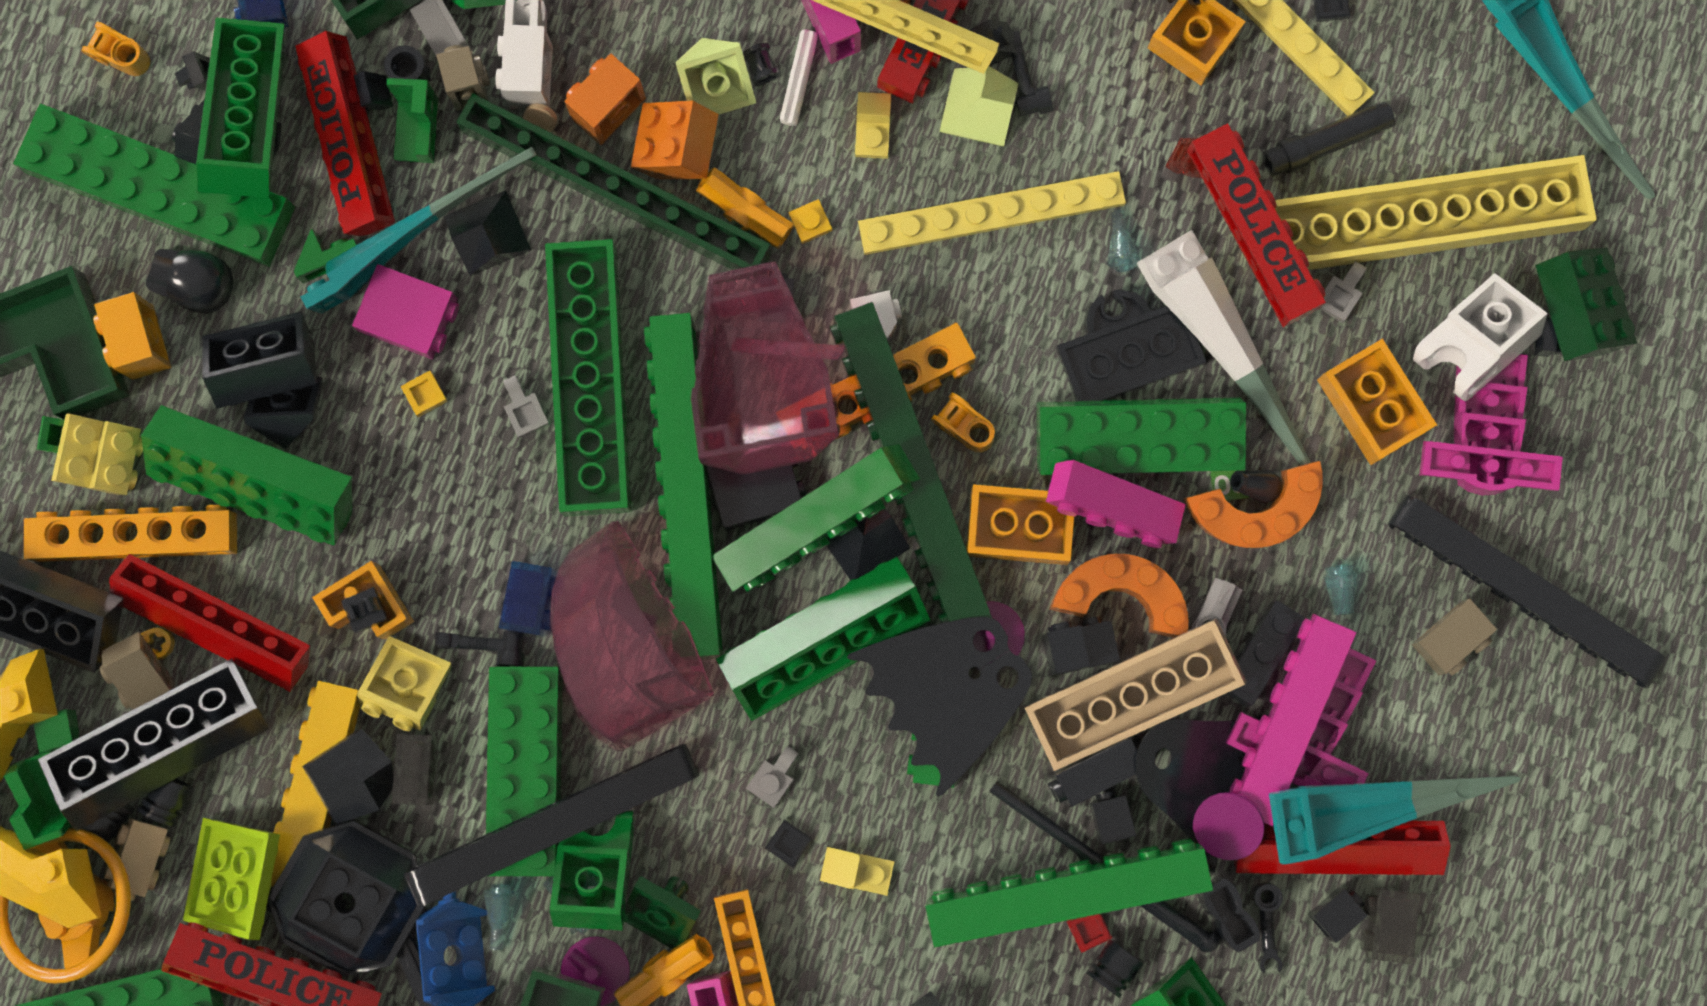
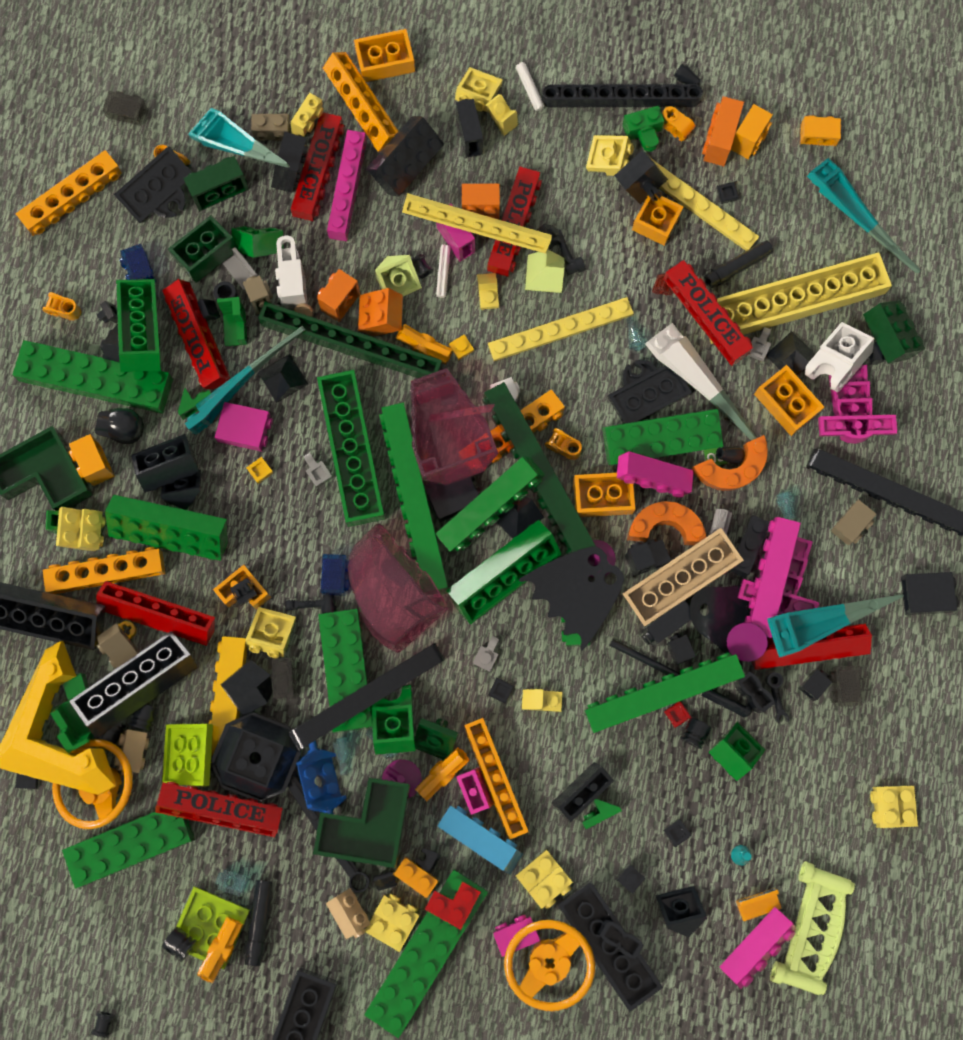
camera: 10 degrees left, 5 degrees down
(1396, 316) = (791, 352): none -> black slope
(1567, 783) = (929, 593): none -> black brick

